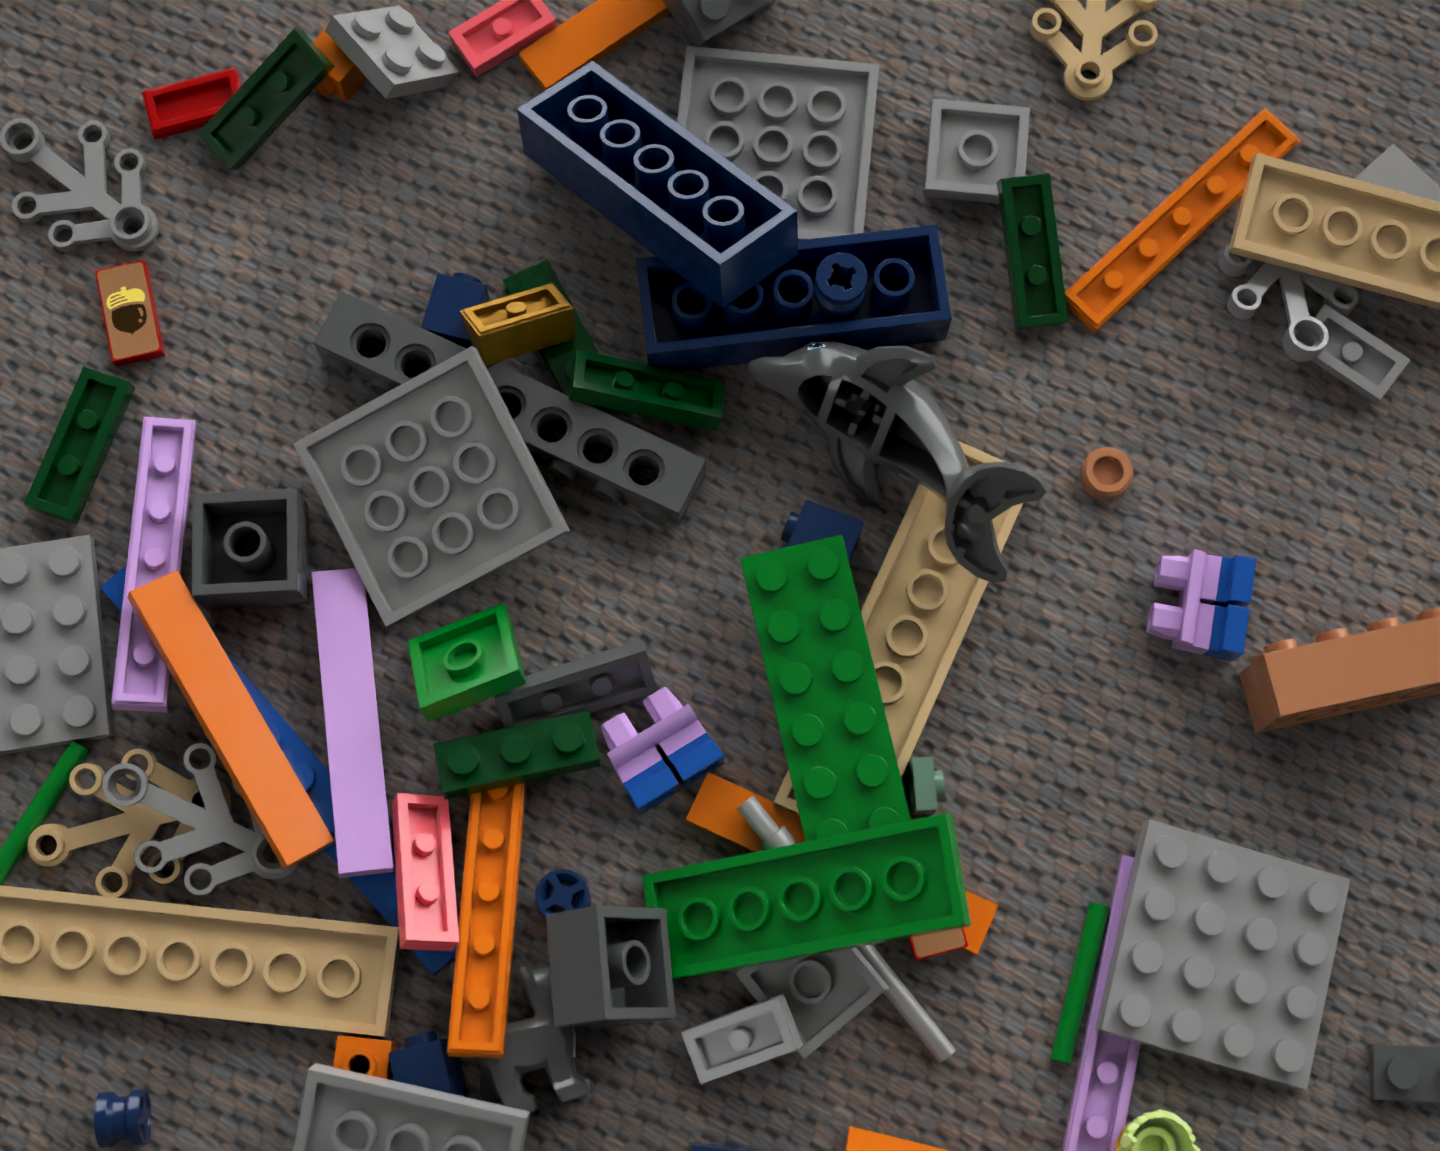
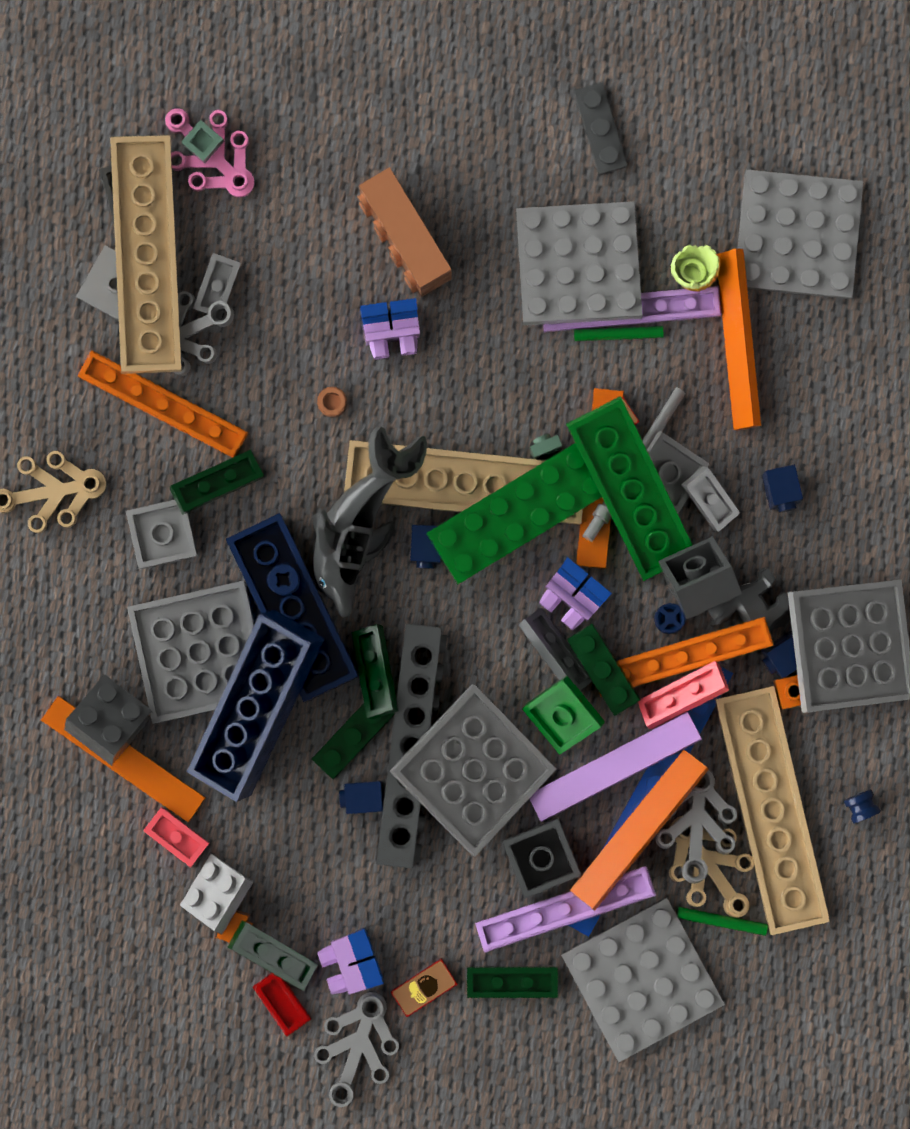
camera: 105 degrees left, 10 degrees up
(208, 220) = (355, 976): none -> hips
(519, 323) = (361, 756): pearl gold slope -> none

